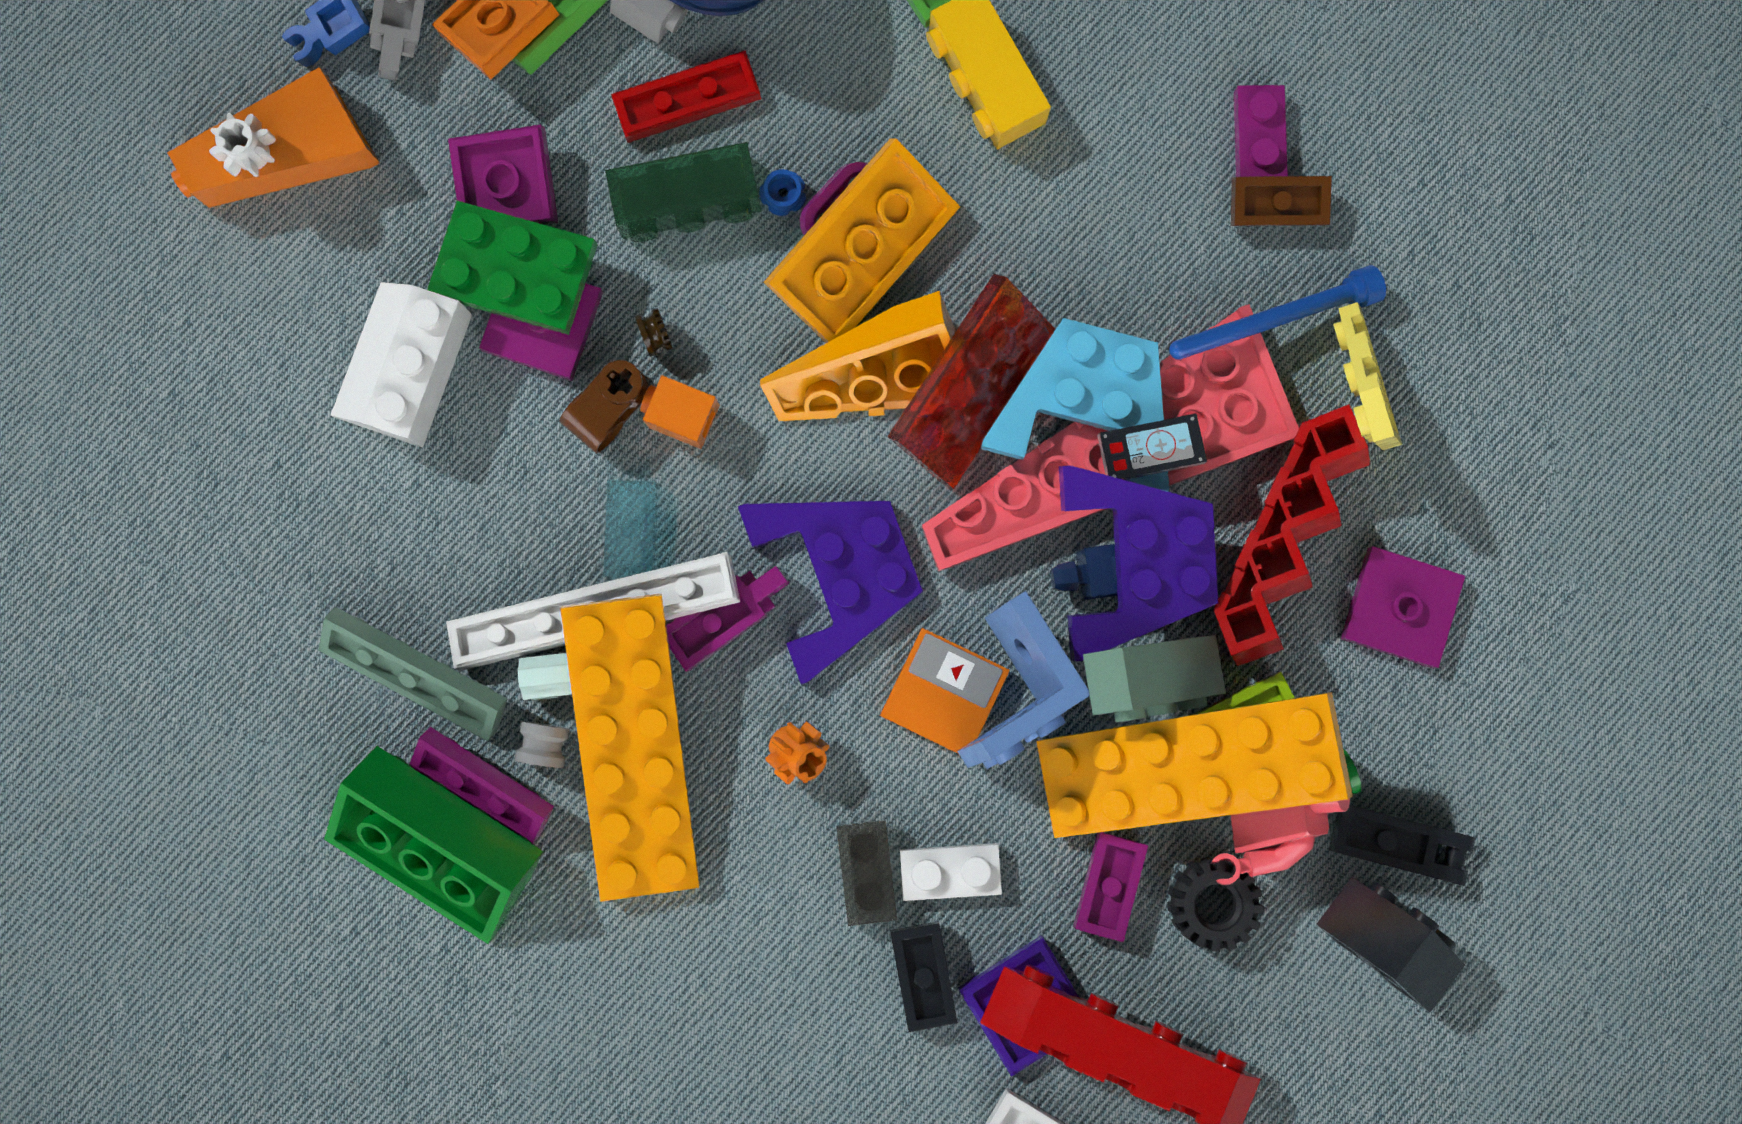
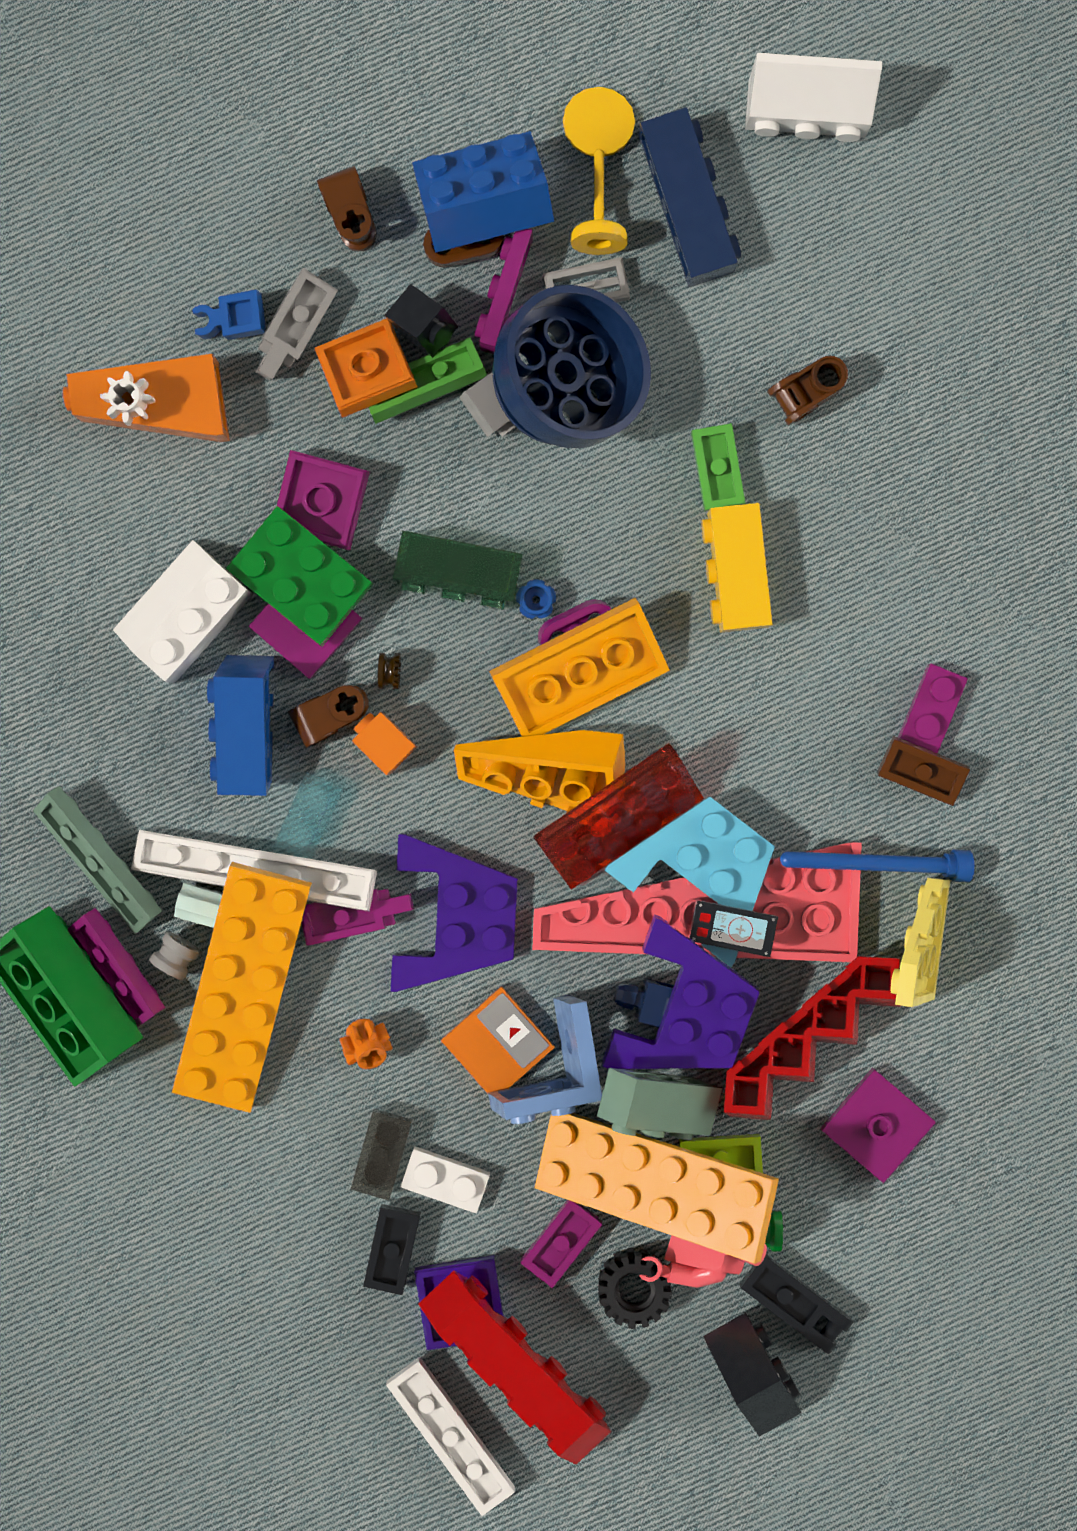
camera: 25 degrees right, 5 degrees up
(514, 458) = (241, 725): none -> blue wedge
(686, 96) = (492, 489): red tile -> none

